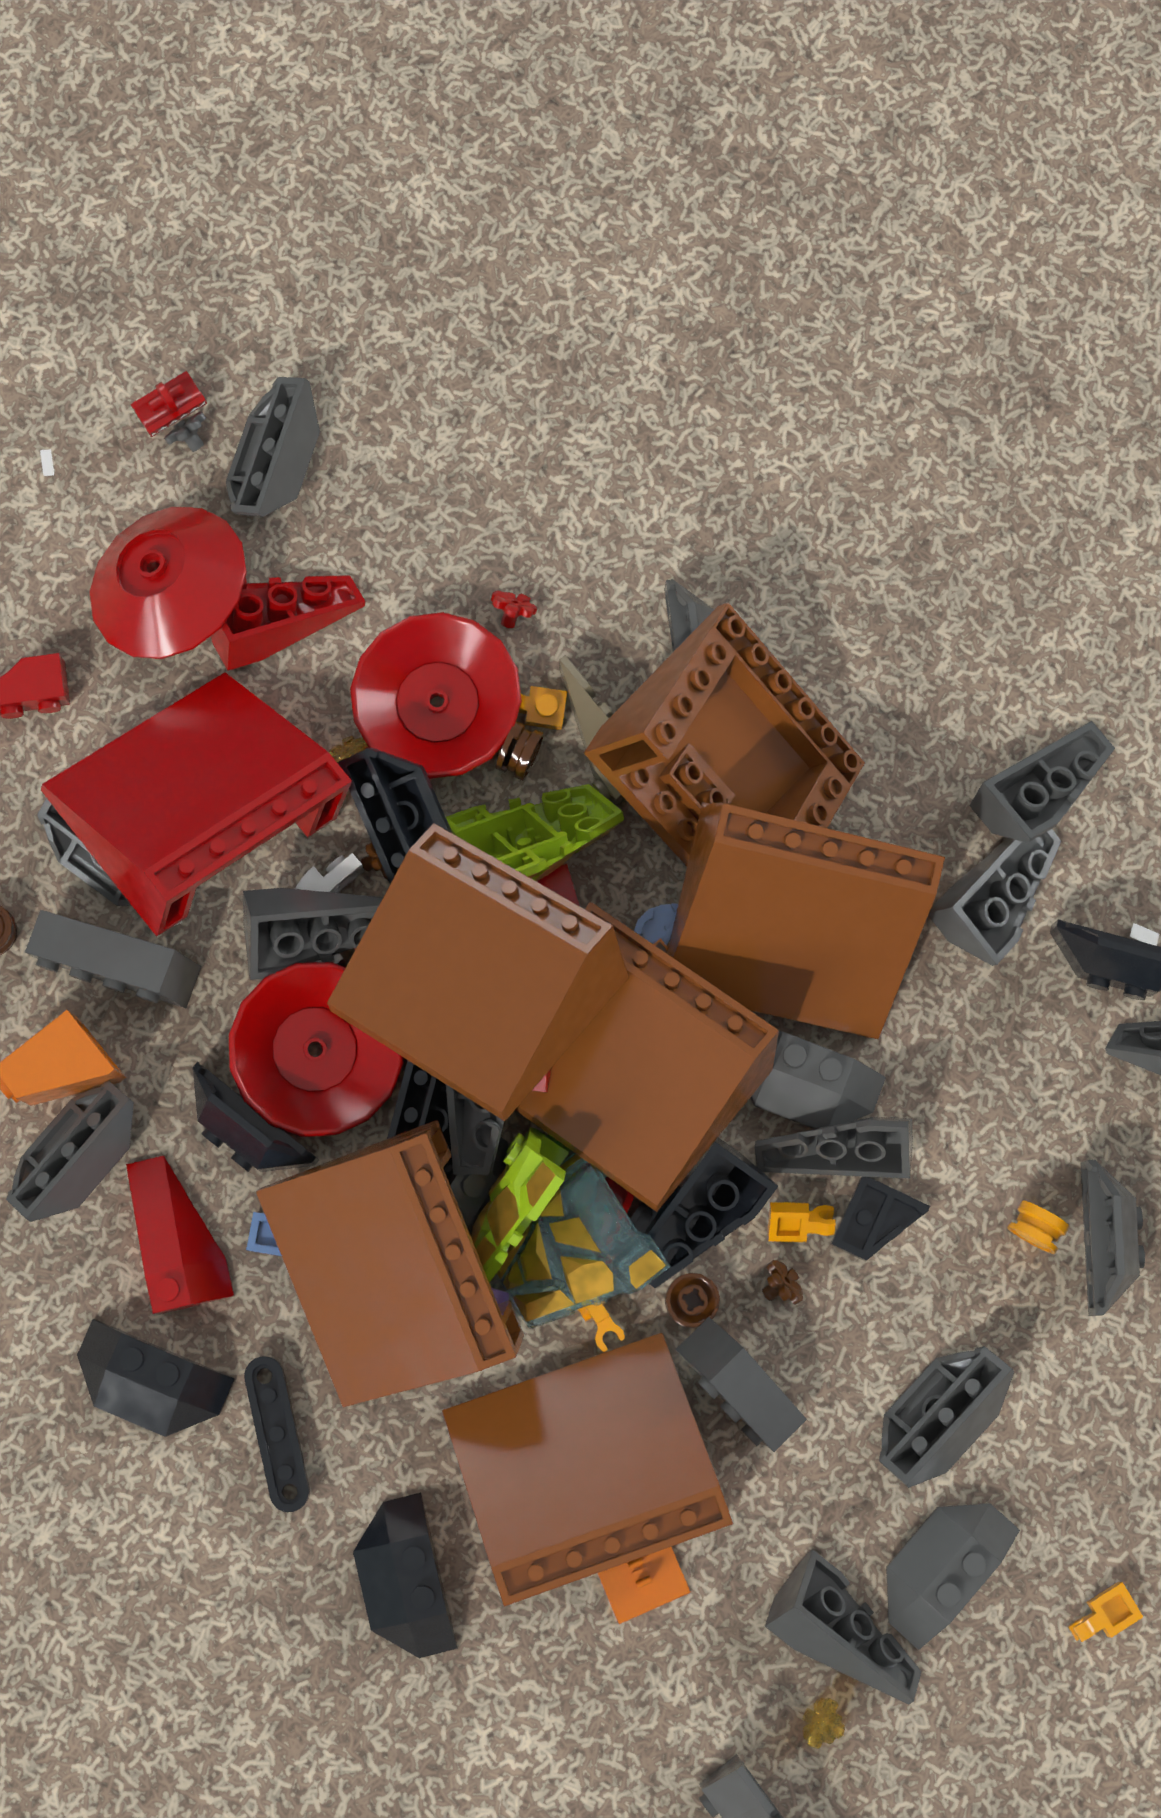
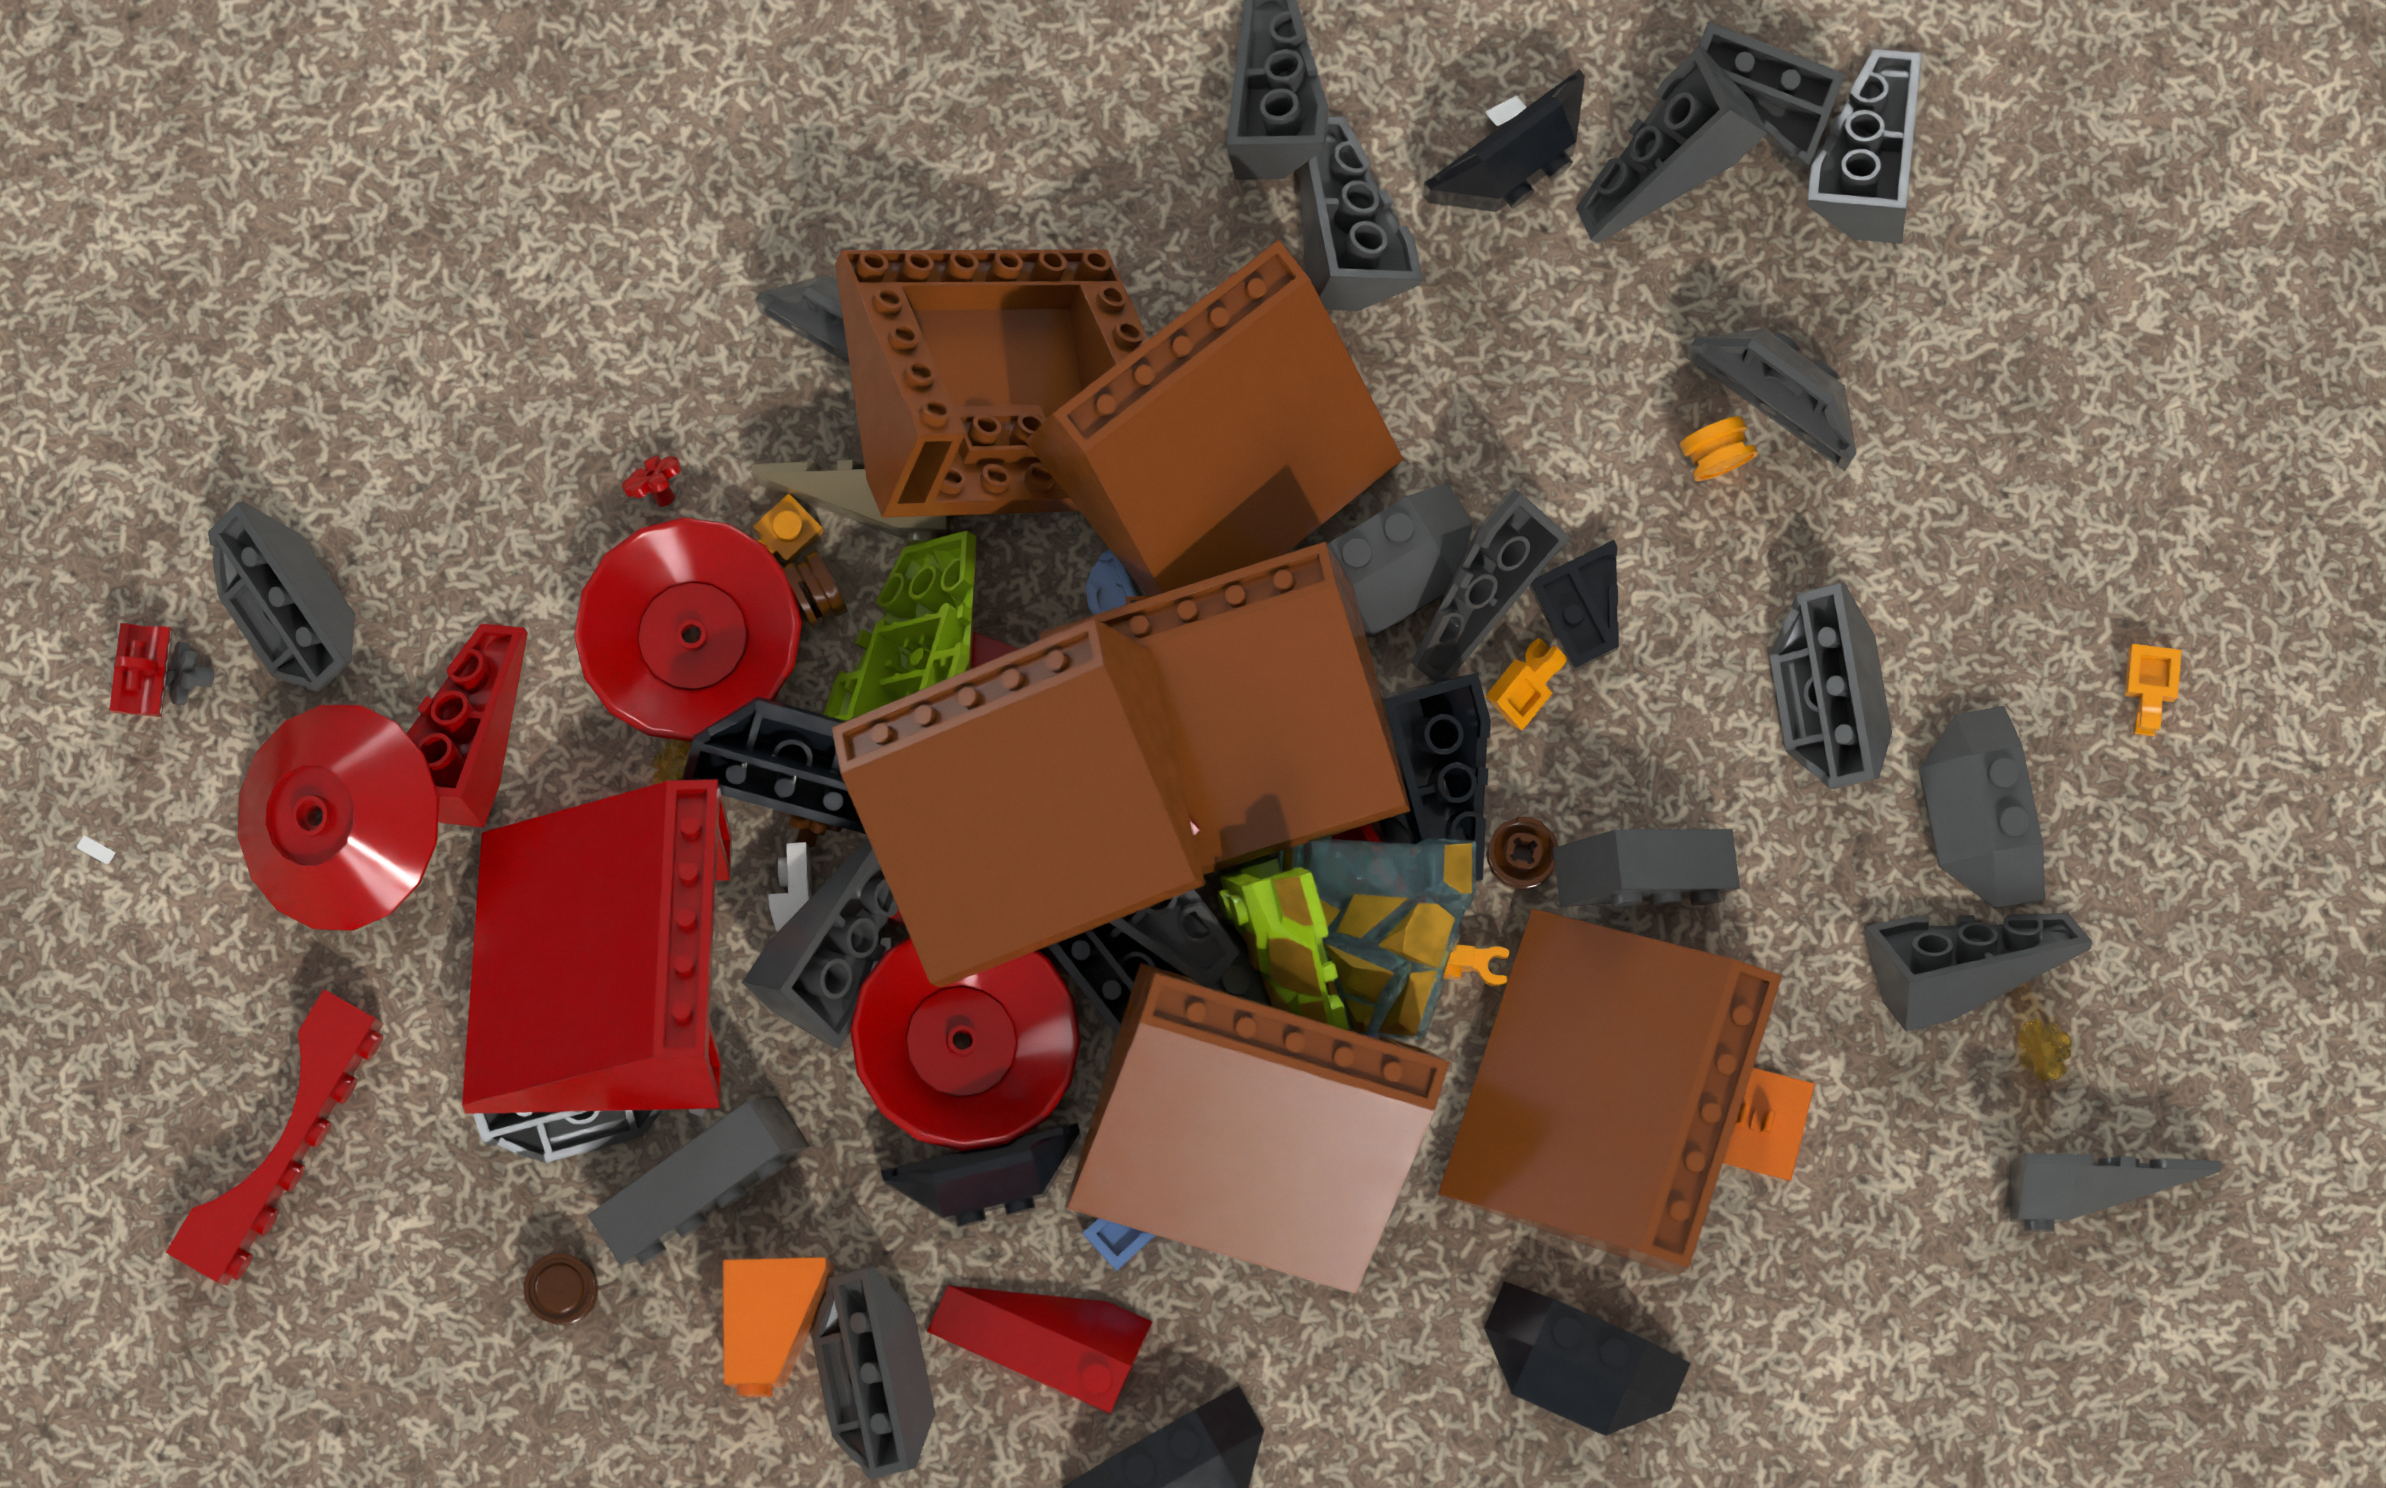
camera: 45 degrees left, 0 degrees up
(277, 1434) = (1331, 1382): black plate -> none
(782, 1283) = (1576, 749): reddish brown plant -> none

